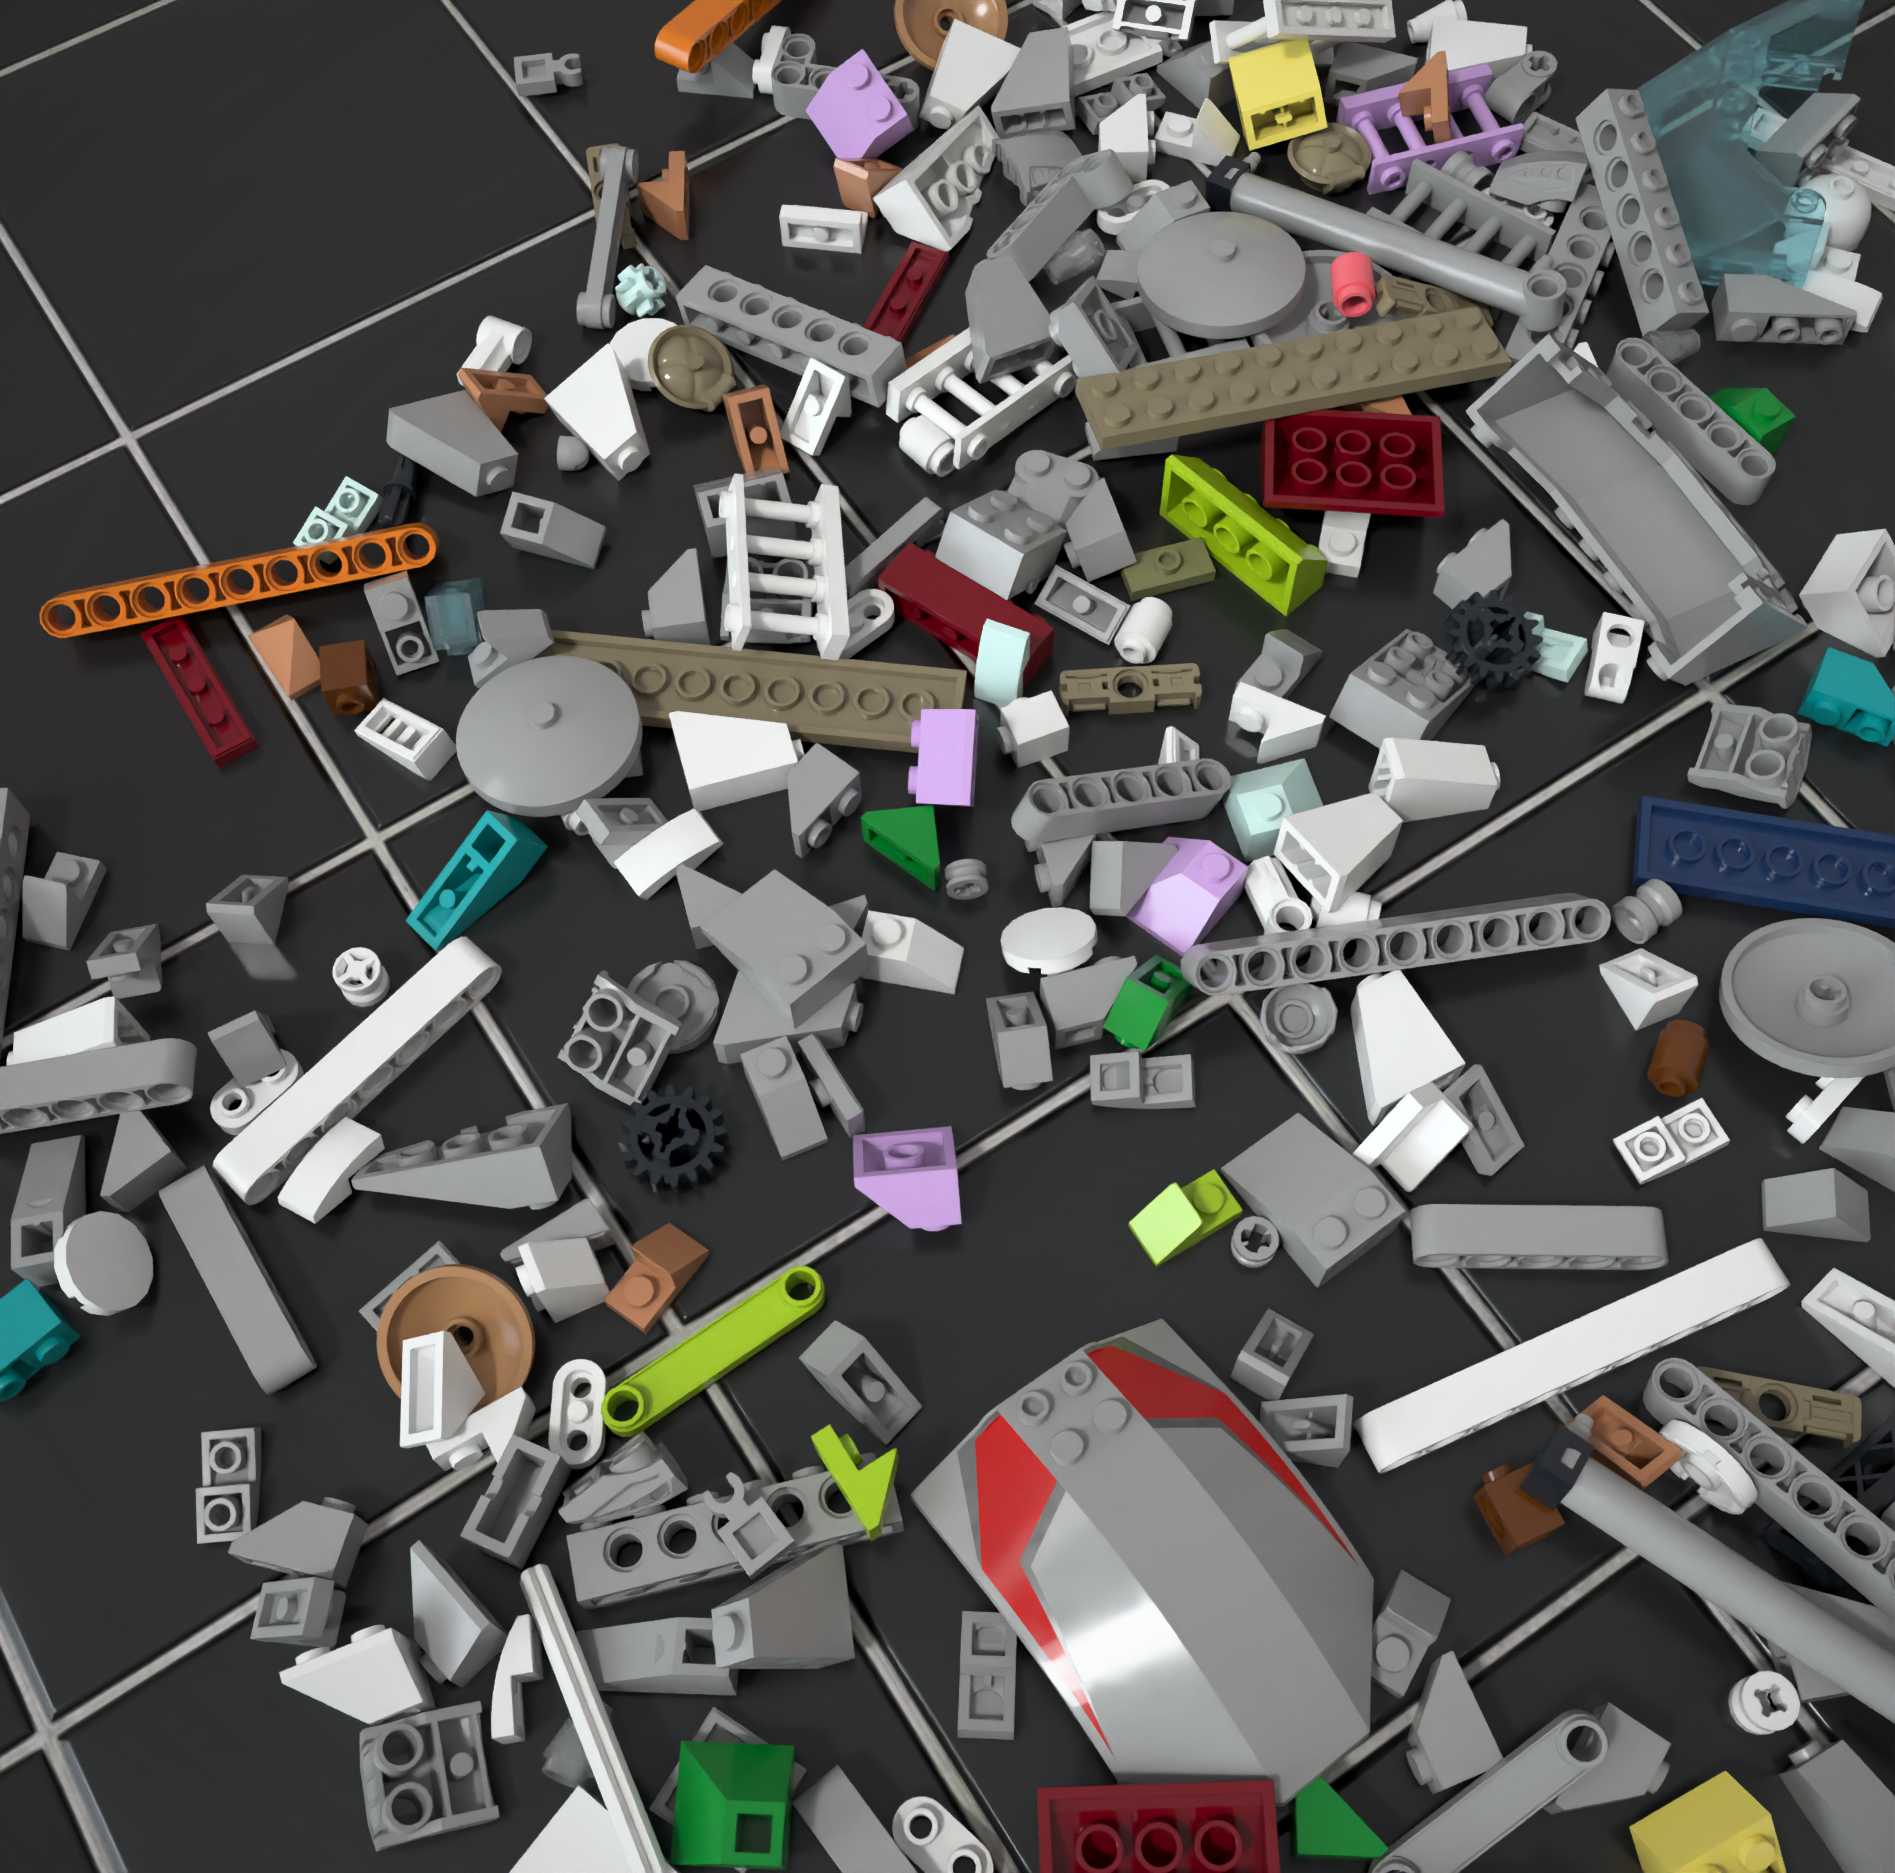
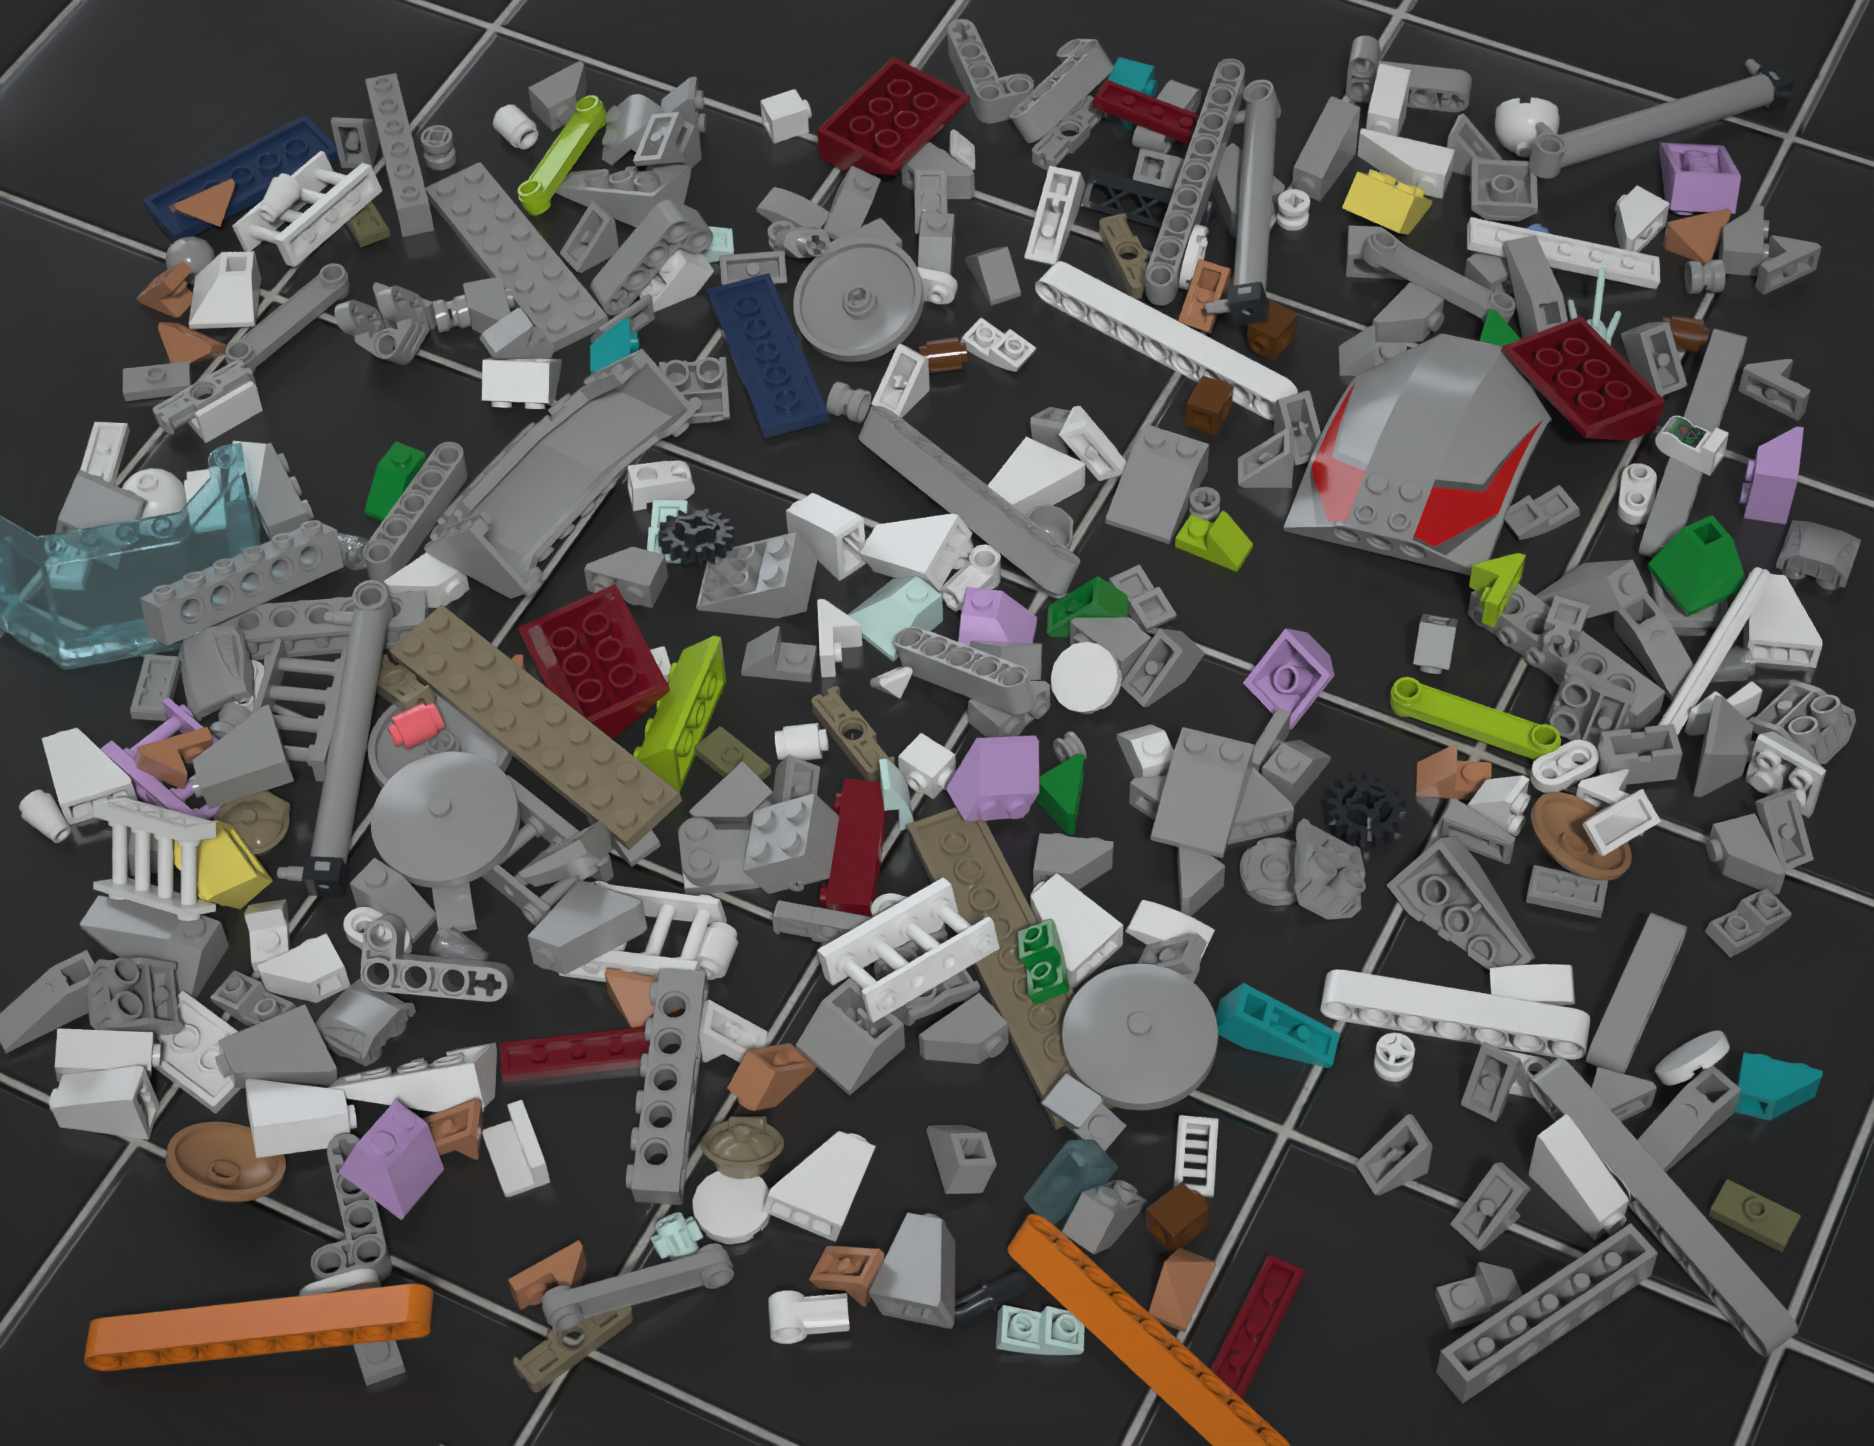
camera: 120 degrees left, 10 degrees down
(571, 453) = (872, 1198): light grey hinge -> none
(711, 697) = (1045, 962): none -> green slope
(1394, 144) = (242, 762): none -> light grey slope
(1419, 1341) = (1209, 405): none -> reddish brown brick
(1522, 87) = (105, 724): light grey piece -> none
(1538, 1237) = (1105, 377): light grey beam -> none

